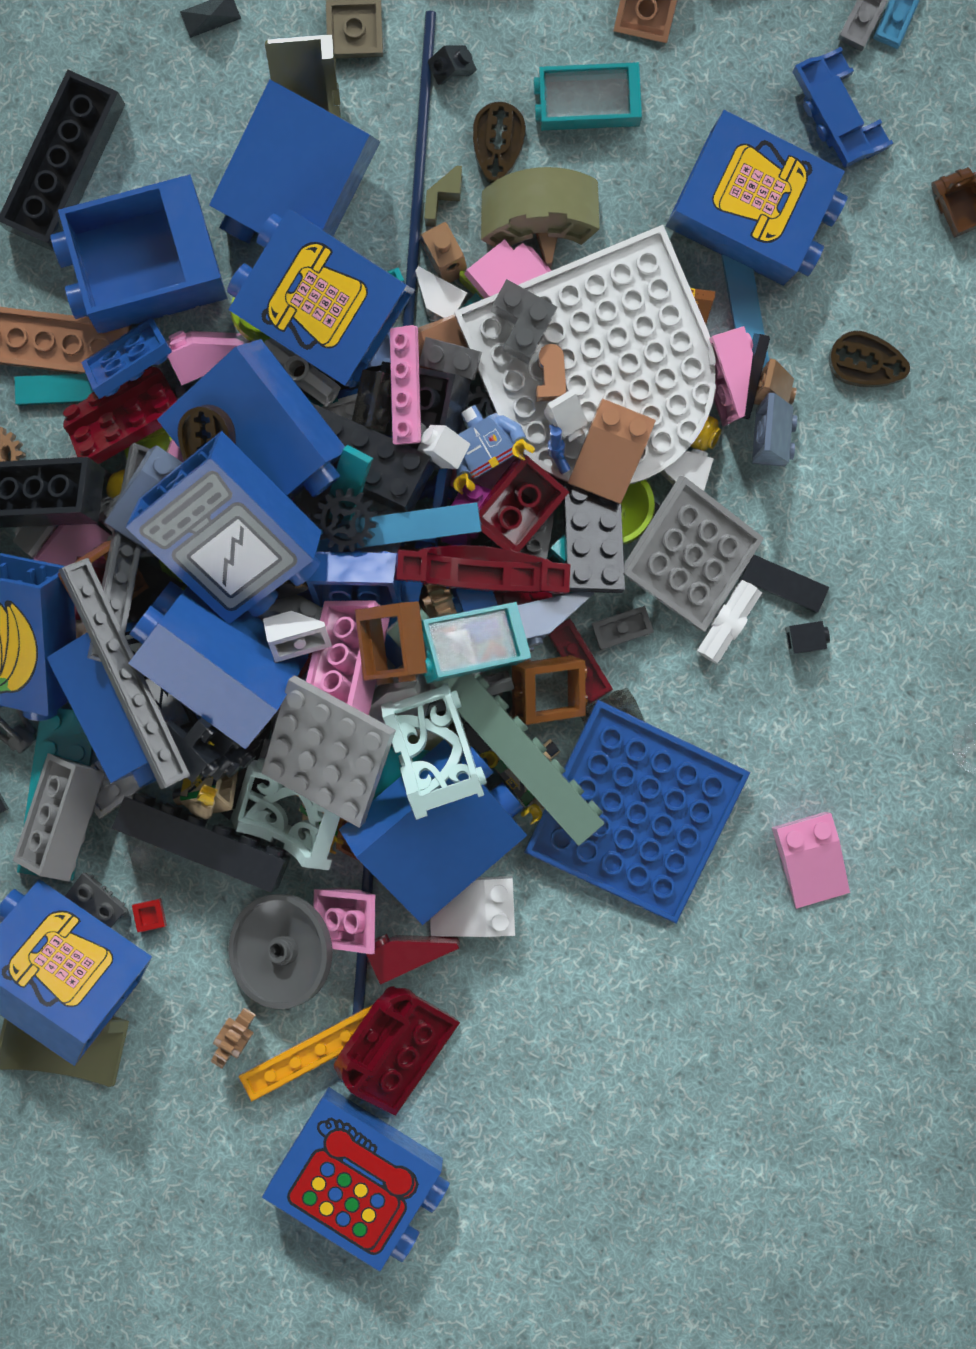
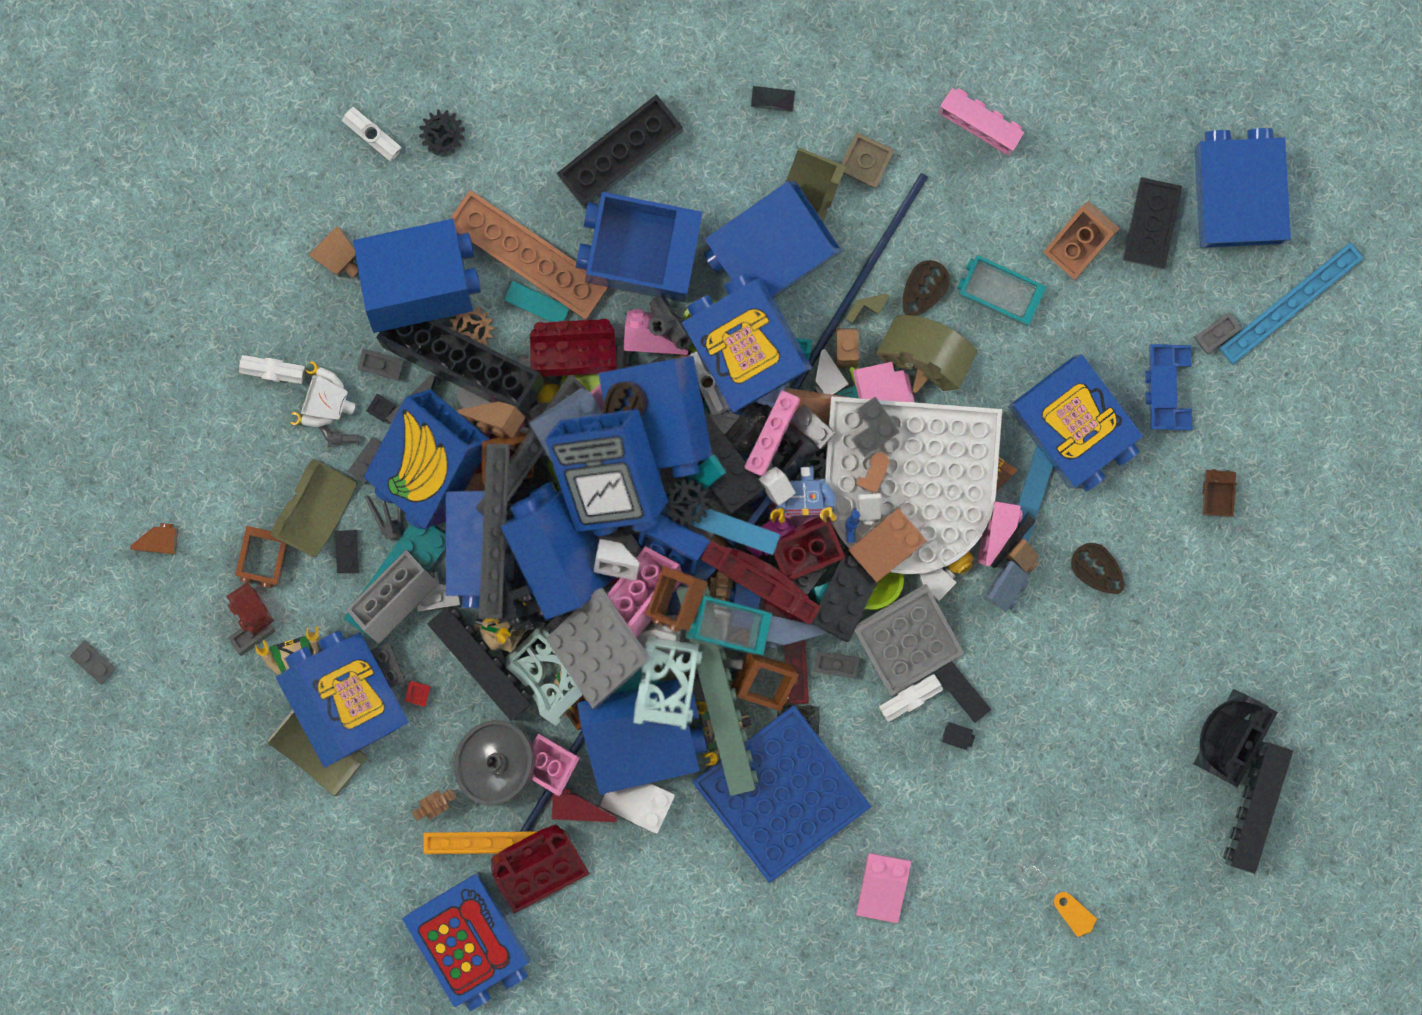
camera: 25 degrees right, 0 degrees up
(63, 538) = (494, 417): none -> medium nougat slope
(126, 358) = (596, 313): blue plate -> none
(218, 324) = (668, 322): none -> dark grey piece
(451, 62) = (919, 219): black bracket -> none

